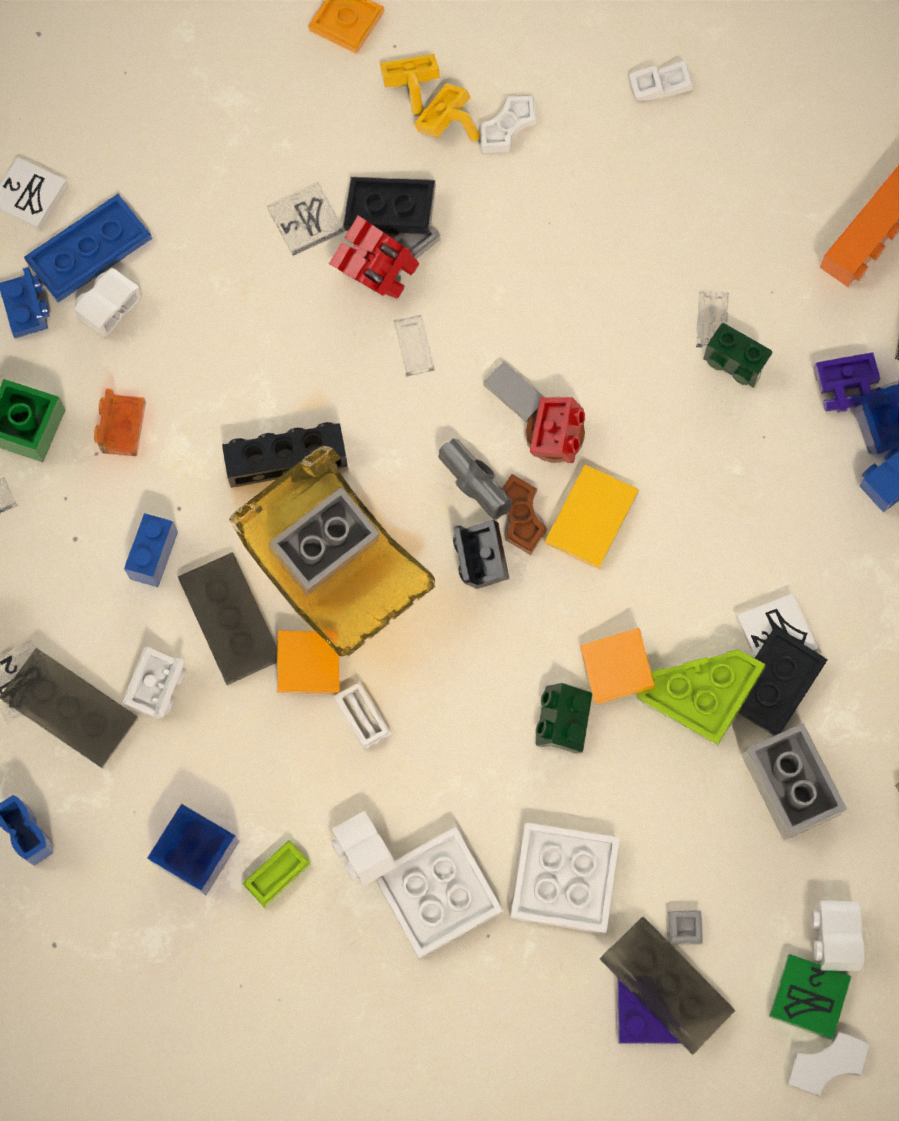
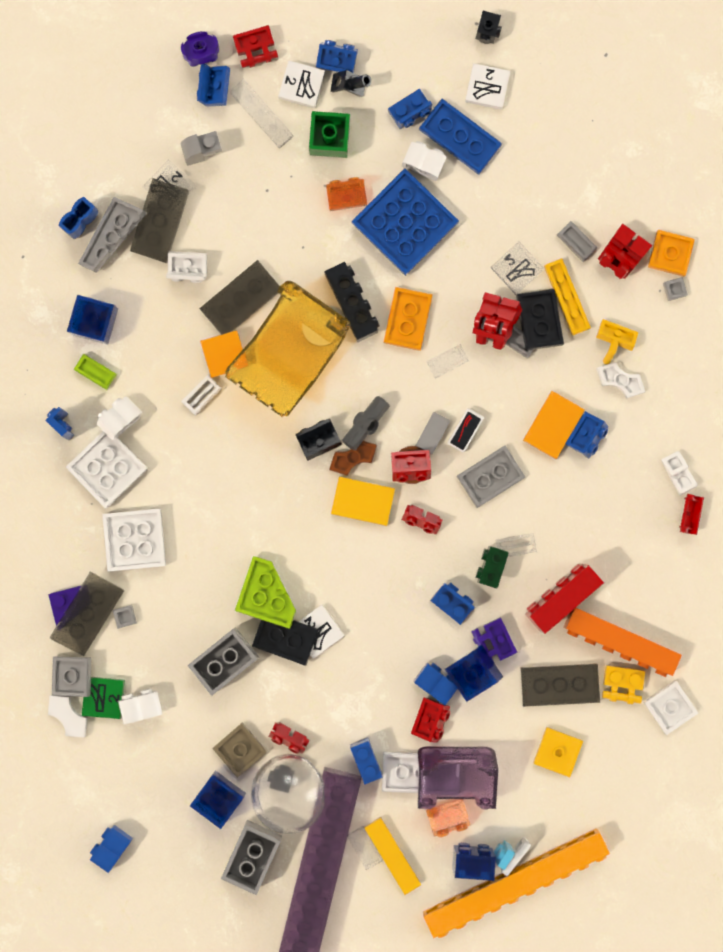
camera: 75 degrees right, 15 degrees up
(62, 786) = (110, 233): none -> light grey wing
(151, 550) = (268, 238): blue brick -> none
(188, 352) = (405, 221): none -> blue plate
(291, 132) = (577, 241): none -> light grey tile
(324, 541) = (296, 342): light grey brick -> none
(325, 71) = (623, 253): none -> red hips
(334, 385) = (407, 318): none -> light orange tile
(352, 945) = (55, 420): none -> blue bracket
(368, 163) = (567, 297): none -> yellow tile
(398, 25) = (675, 289): none -> light grey tile
(411, 72) = (639, 305): yellow plate -> none
(524, 344) = (465, 430): none -> black slope
(548, 226) = (553, 425): none -> light orange tile
(563, 717) = (229, 515): dark green bracket -> none
(574, 184) = (587, 434): none -> blue bracket
(601, 329) = (490, 476): none -> light grey tile
(617, 666) = (269, 540): light orange tile -> none
(649, 428) = (430, 523): none -> red hinge
(724, 78) = (691, 514): none -> red hinge
(764, 1038) = (71, 676): none -> light grey tile
(777, 425) = (452, 603): none -> blue bracket
(807, 267) = (563, 598): none -> red brick

